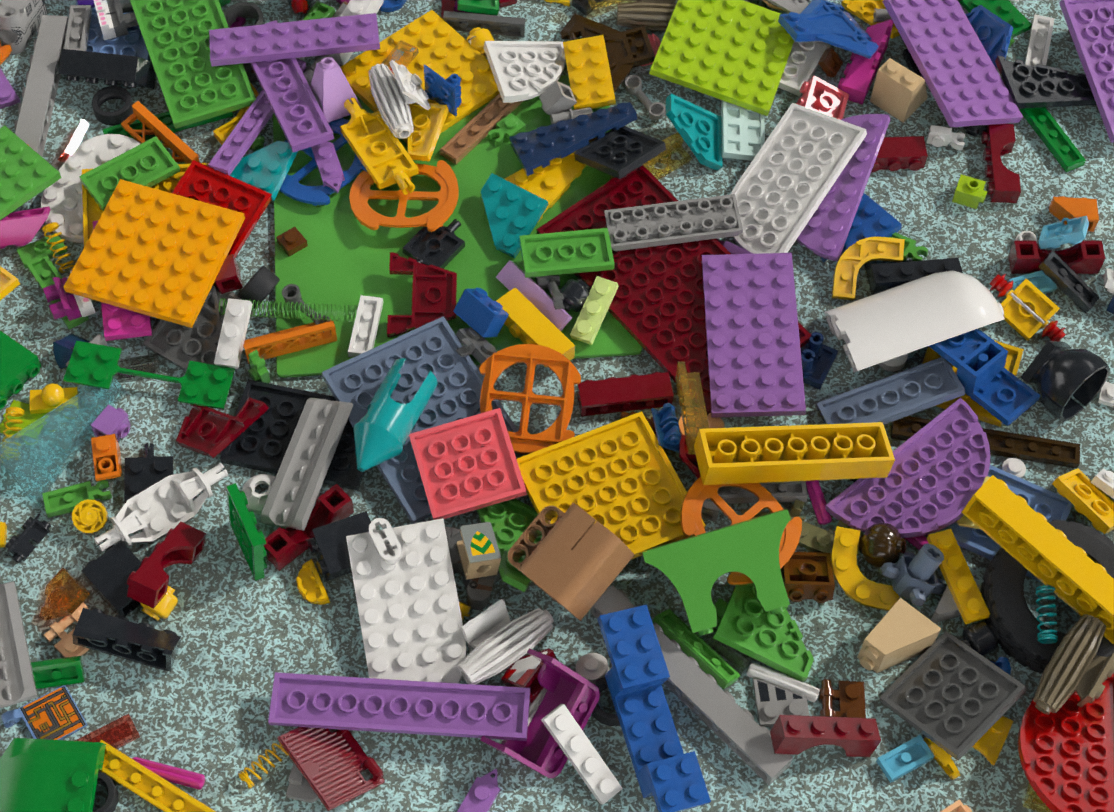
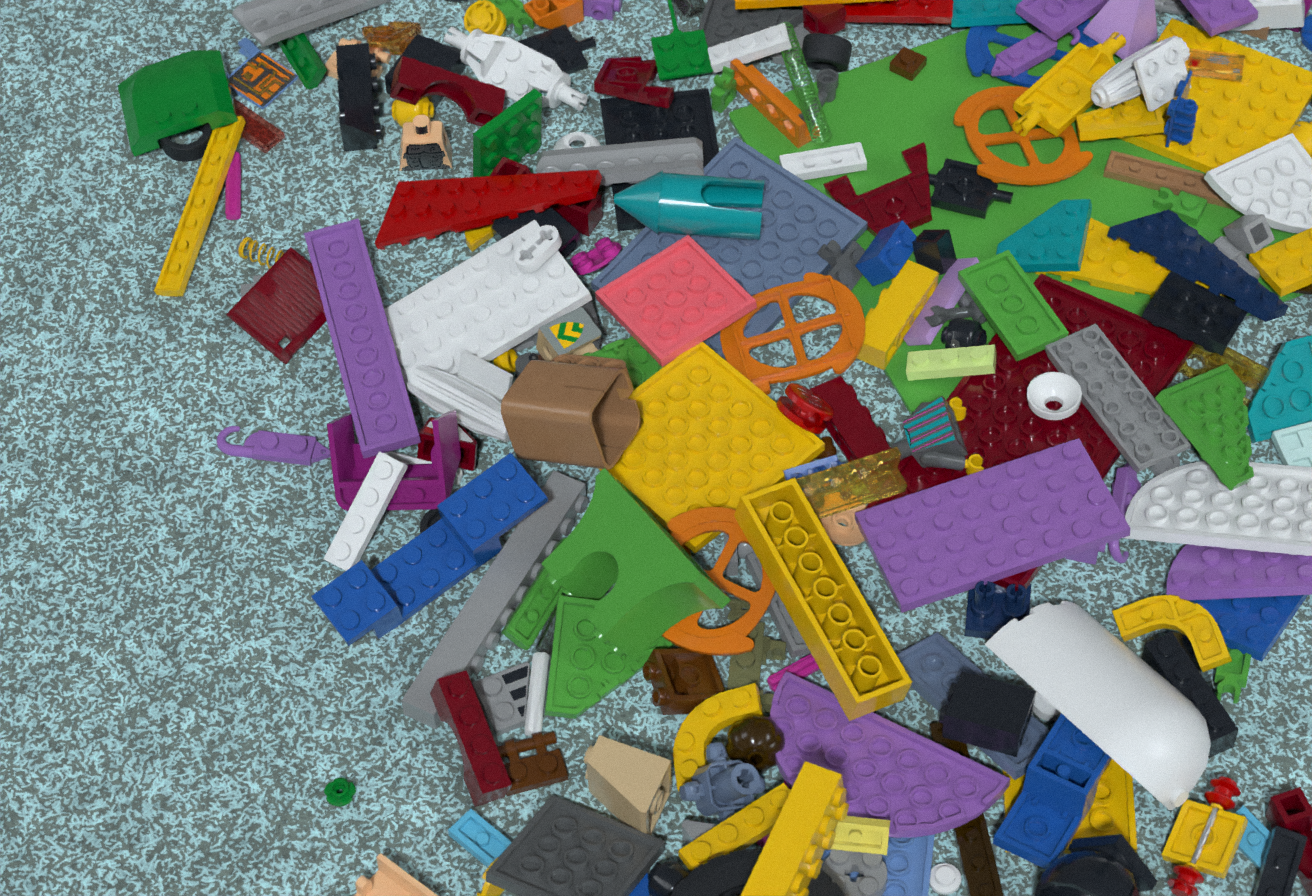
camera: 75 degrees right, 5 degrees down
(208, 599) = (424, 145): none -> torso
(285, 603) = (473, 202): none -> red wing
(387, 505) = (596, 258): none -> dark pink dish
(491, 283) = (935, 250): none -> black brick
(607, 412) = (805, 408): none -> red head
(662, 248) = (1054, 387): none -> white piece
(668, 338) = (936, 438): none -> dark grey torso
(708, 178) = (1214, 421): none -> bright green plate
(915, 388) = (987, 713): none -> black brick

